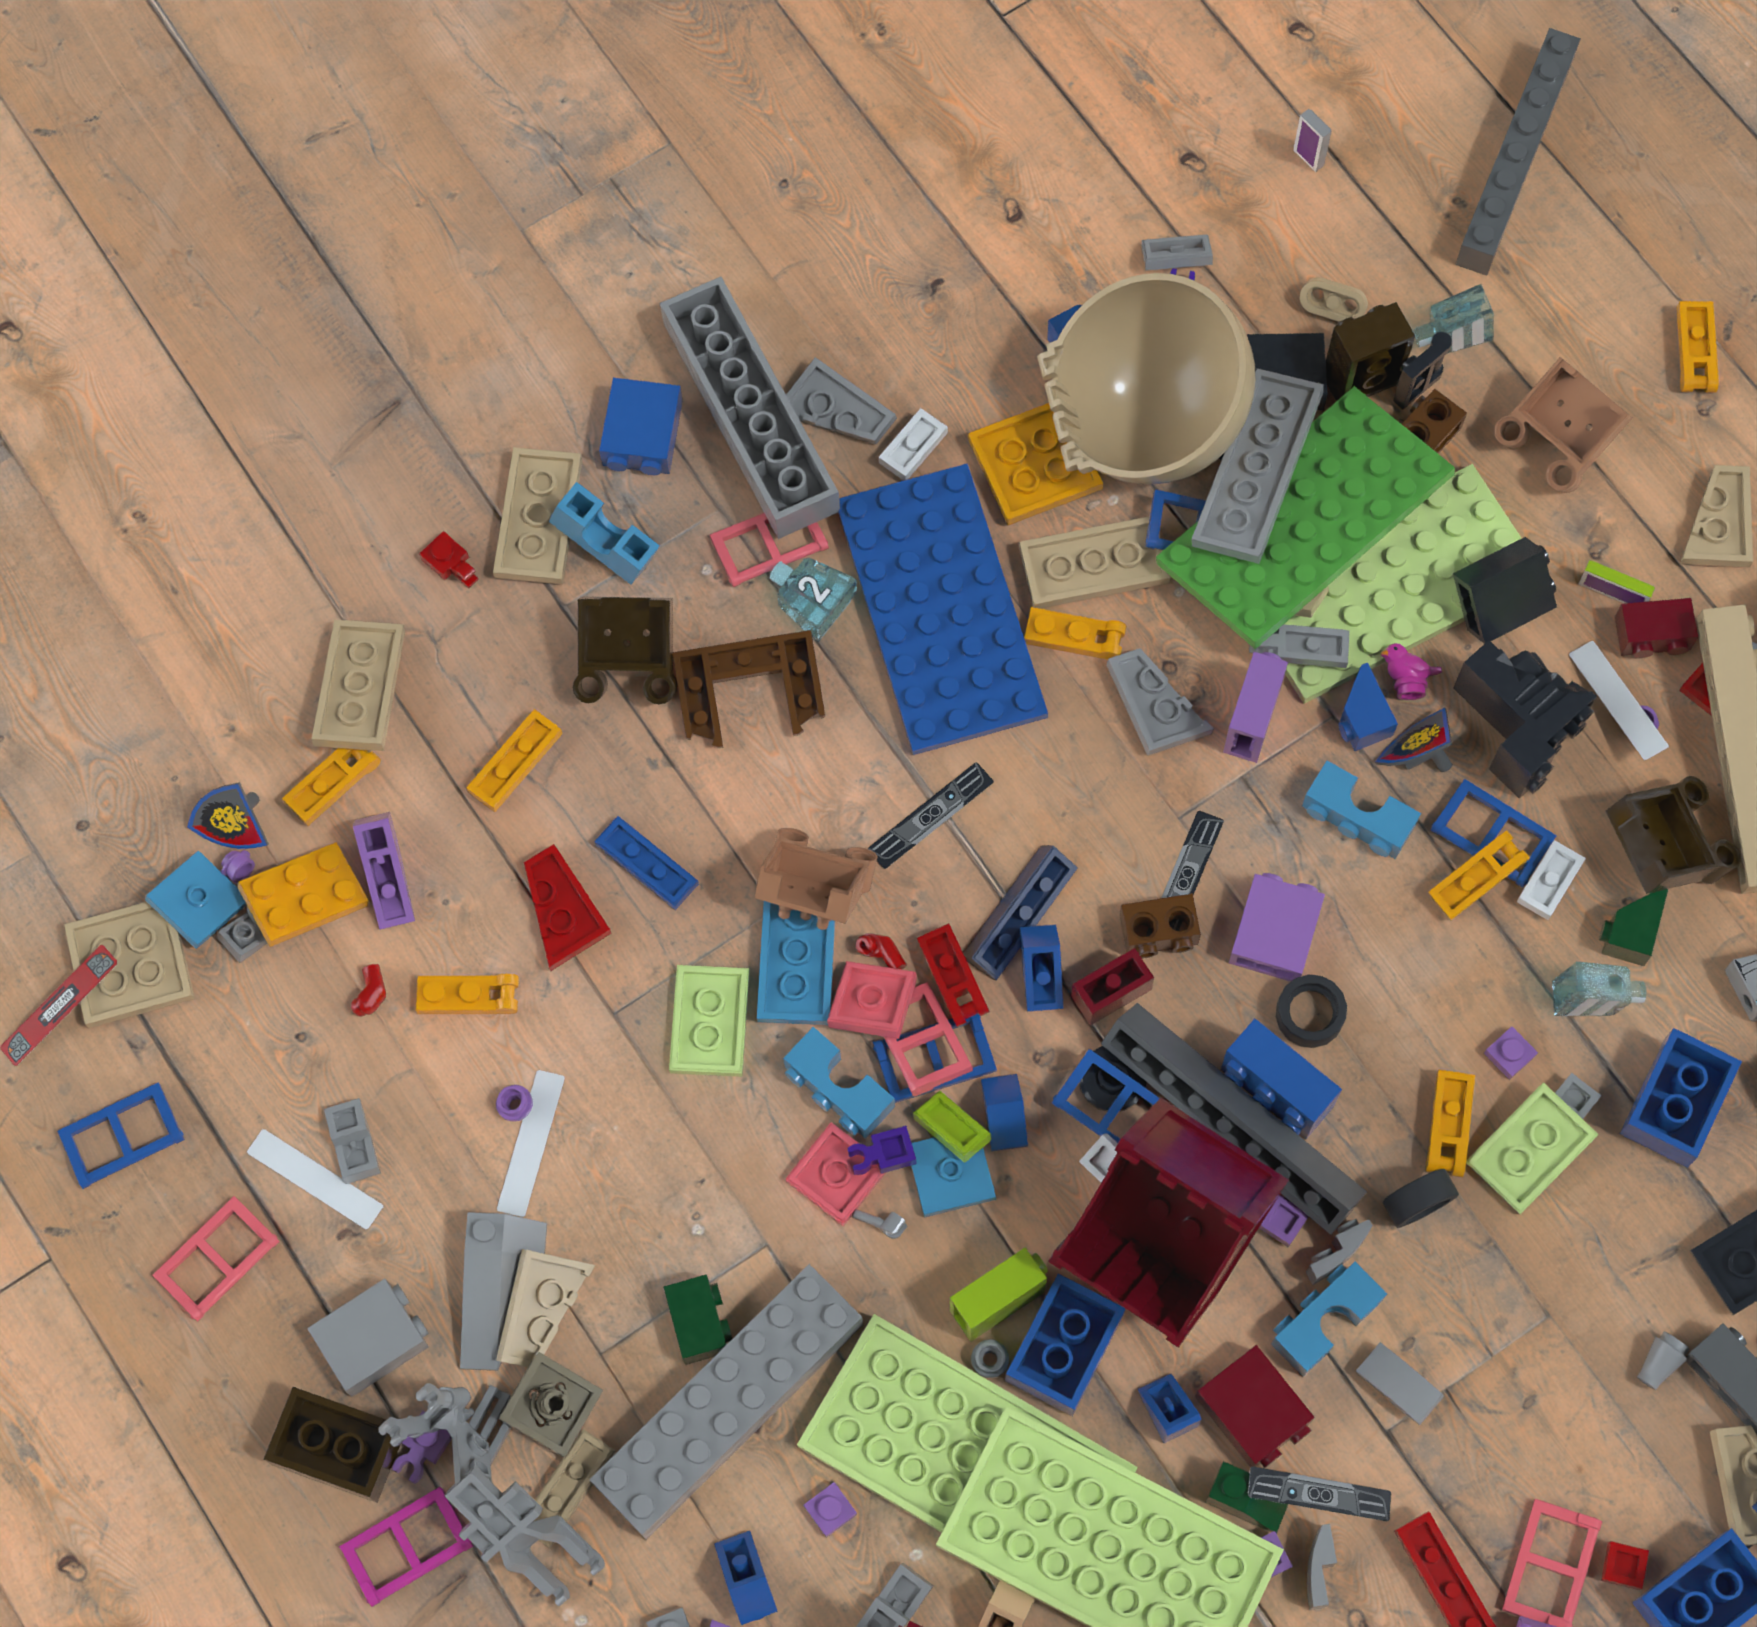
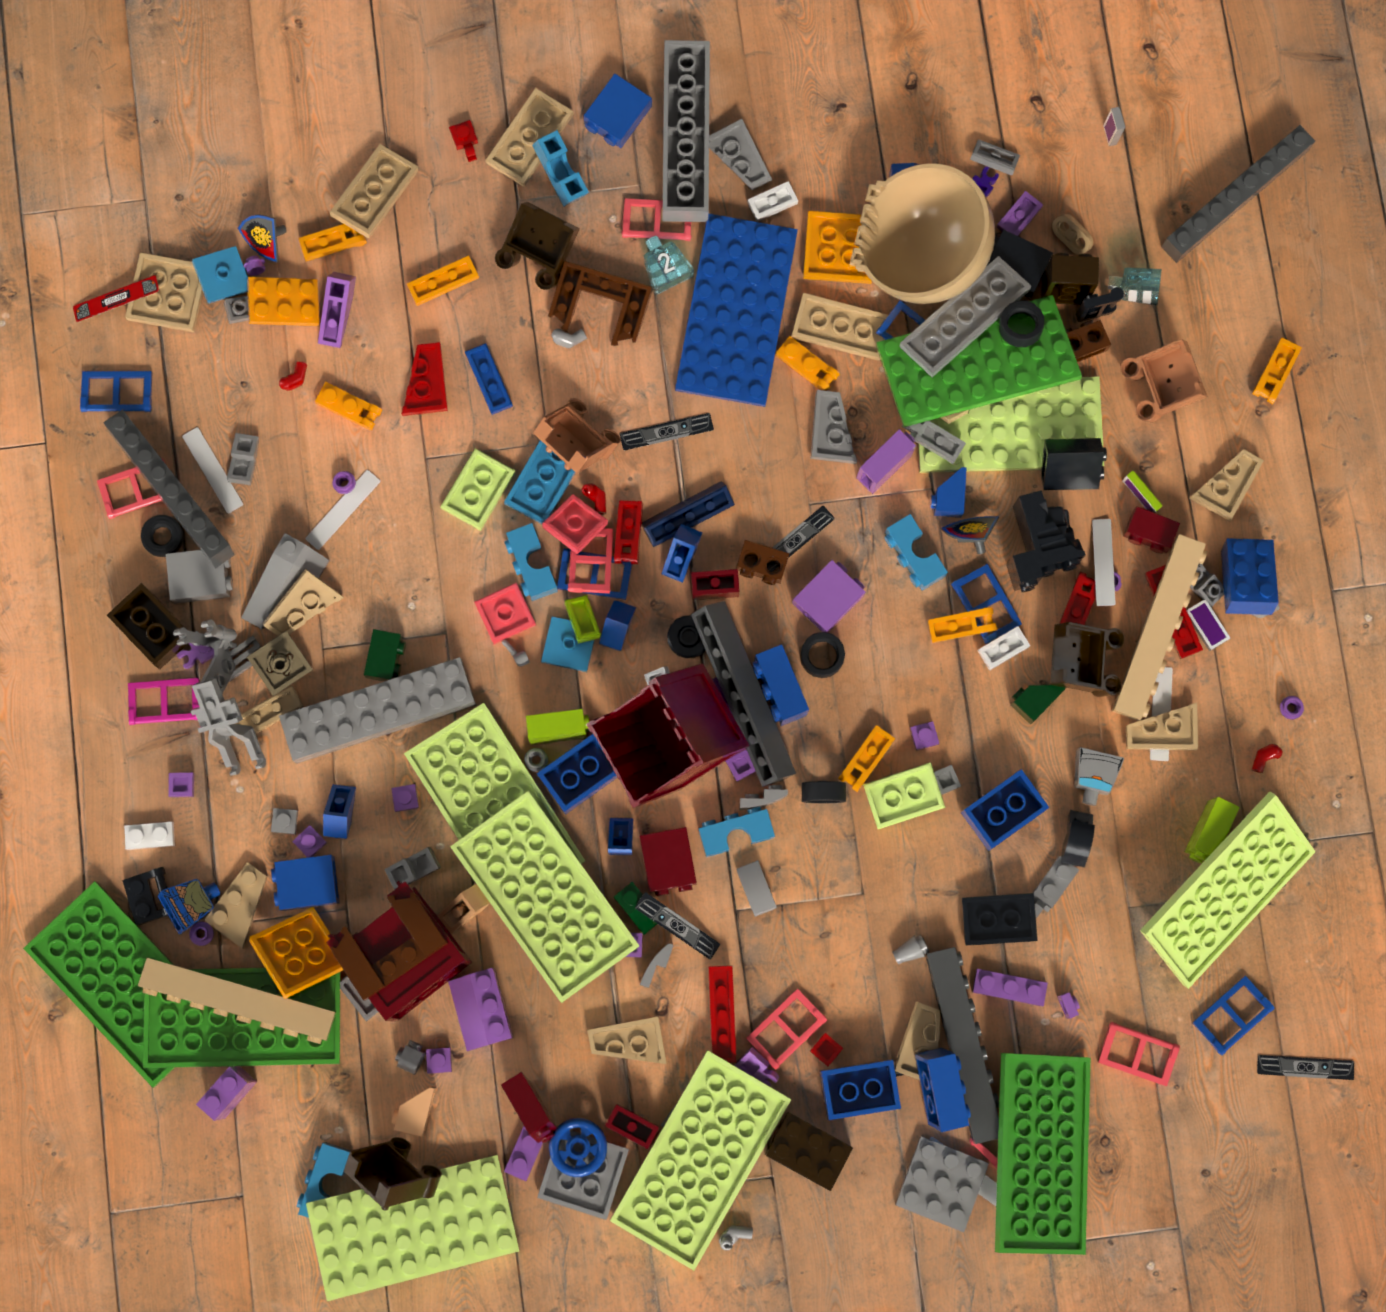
camera: 20 degrees right, 10 degrees up
(268, 1232) = (169, 489): none -> dark grey brick
(268, 1294) = (155, 523): none -> black tyre
(729, 757) = (568, 340): none -> light grey arm
(889, 1150) = (539, 616): dark purple plate -> none
(1131, 1085) = (694, 647): blue window -> none
(1253, 303) = (1020, 214): none -> medium lavender plate
(1338, 416) = (1021, 307): none -> black tyre
(1408, 672) = (989, 484): dark pink animal -> none
(1595, 990) = (984, 722): clear light blue torso -> none
(1616, 767) = (1080, 601): none -> red plate

